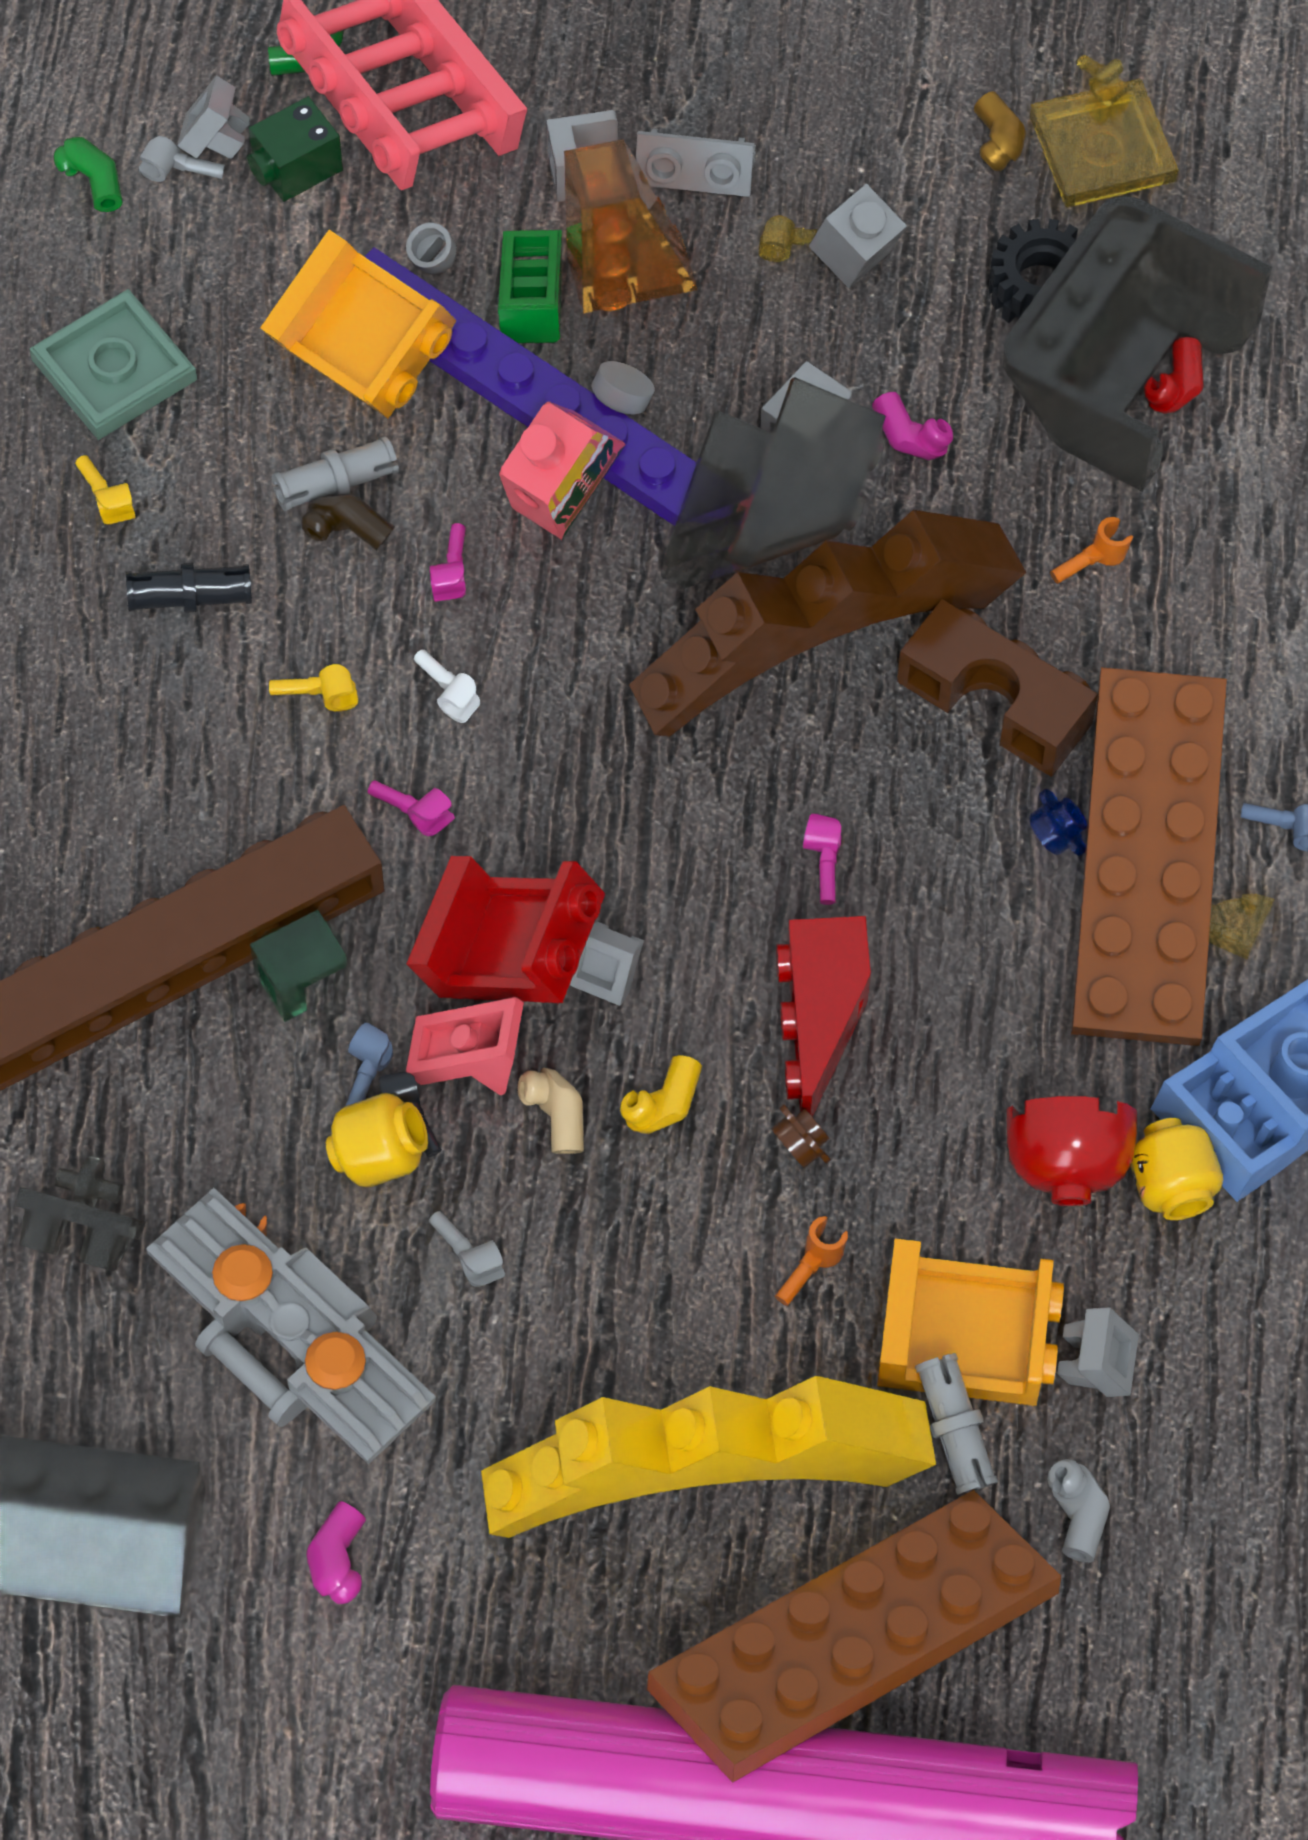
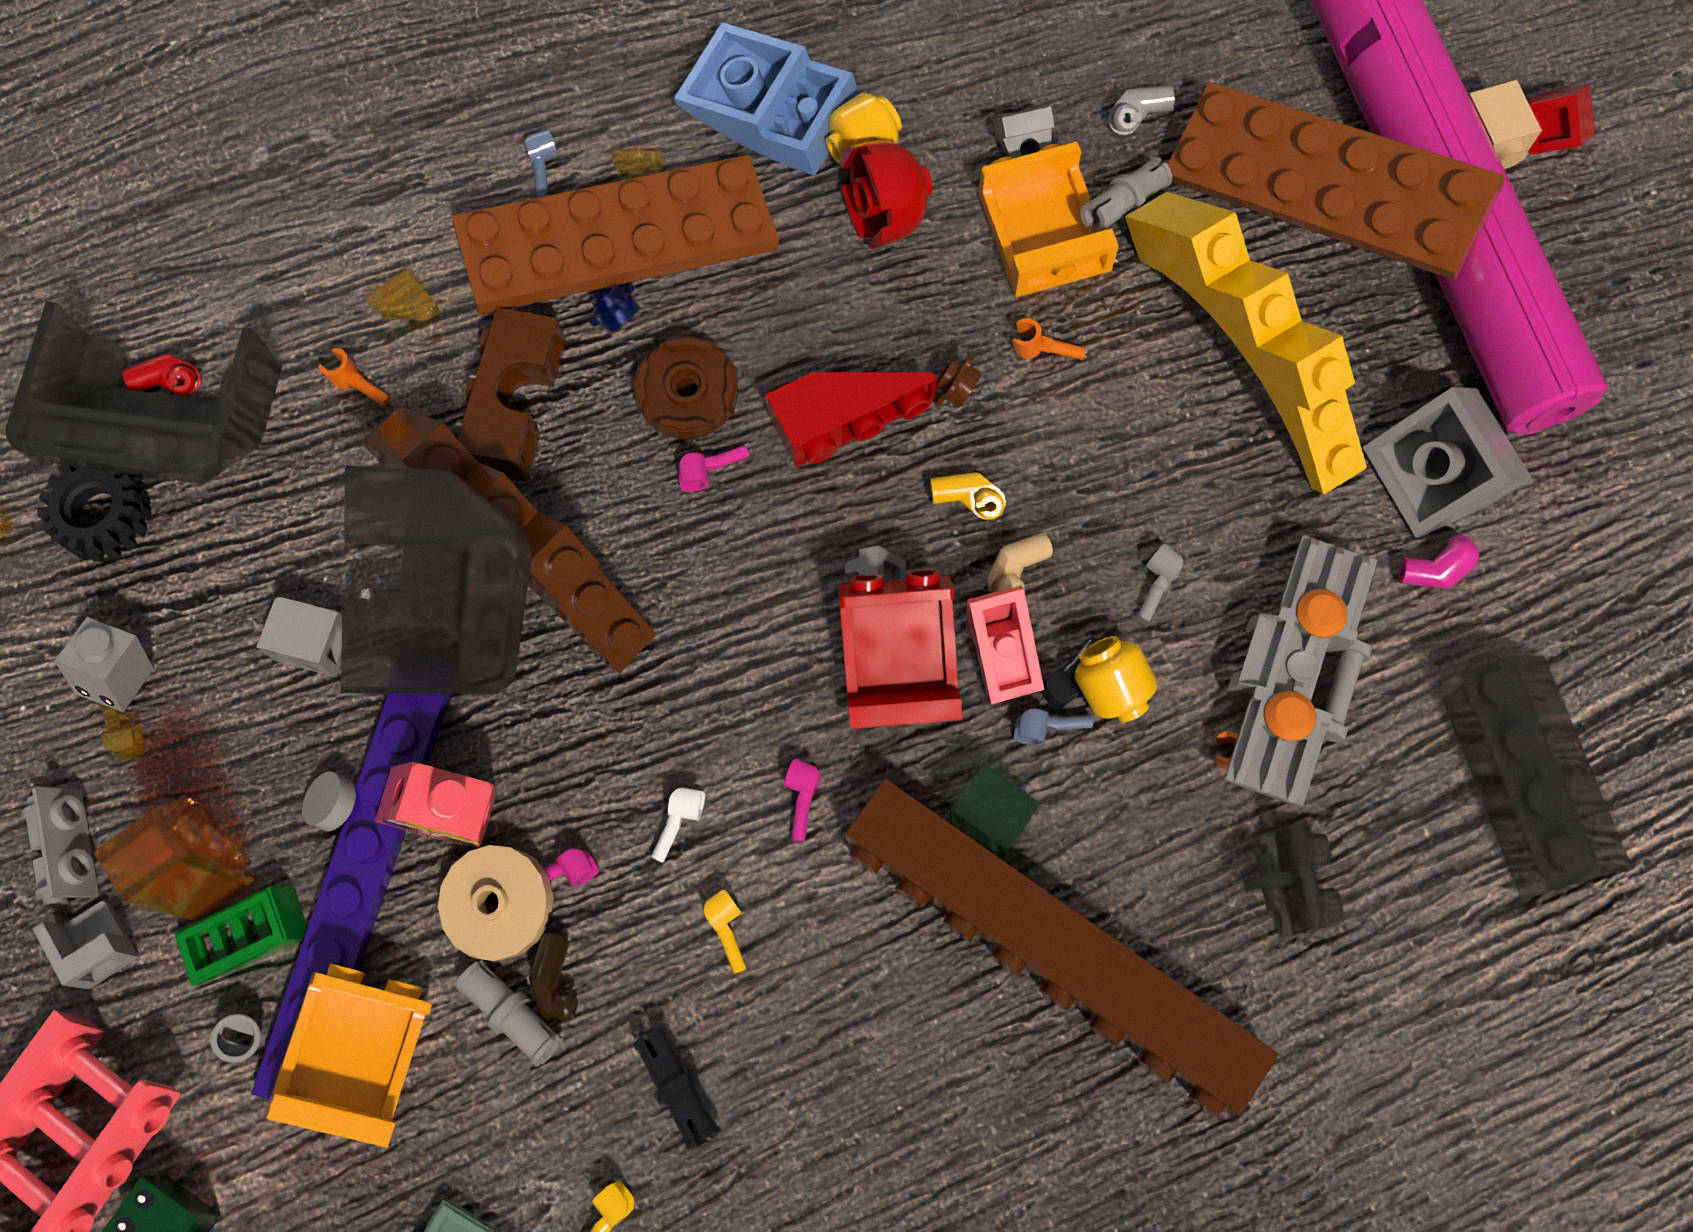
camera: 110 degrees left, 10 degrees up
(446, 496) = (522, 909): none -> tan plate
(449, 1620) = (1446, 461): none -> light grey slope
(909, 437) = (292, 555): dark pink arm -> none
(930, 836) = (684, 364): none -> reddish brown plate
(1171, 629) = (403, 300): none -> clear yellow tile

